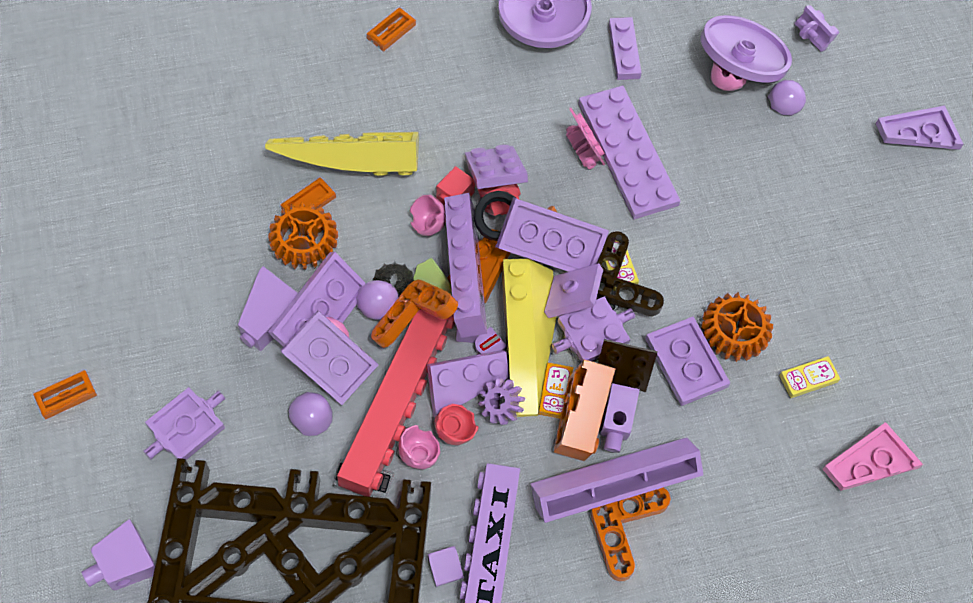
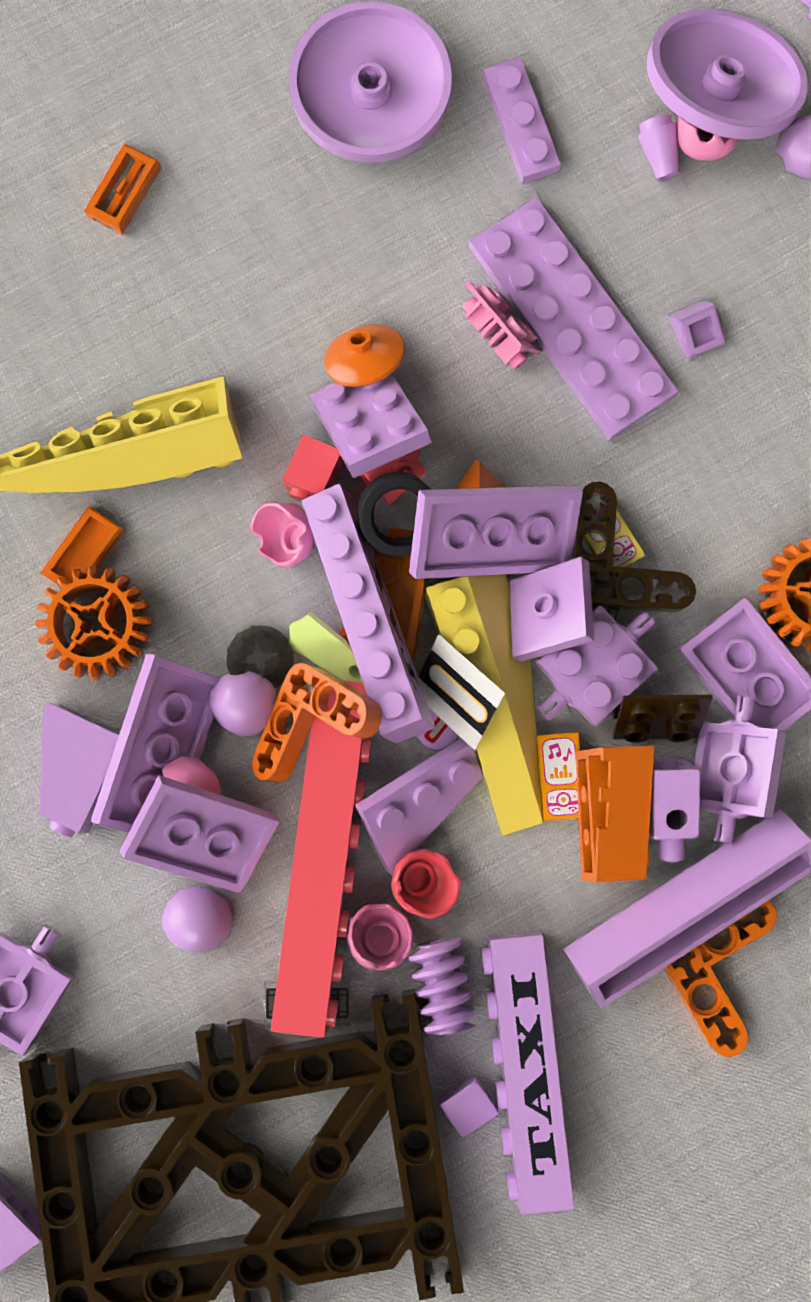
camera: 10 degrees left, 20 degrees up
(447, 486) = (442, 987): none -> lavender piece
(497, 392) = (478, 839): lavender gear -> none
(502, 137) = (364, 355): none -> orange dish
(506, 319) = (458, 692): none -> sticker
(664, 407) = (738, 768): none -> lavender plate
(700, 76) = (660, 145): none -> lavender cone
(700, 174) = (697, 328): none -> lavender slope

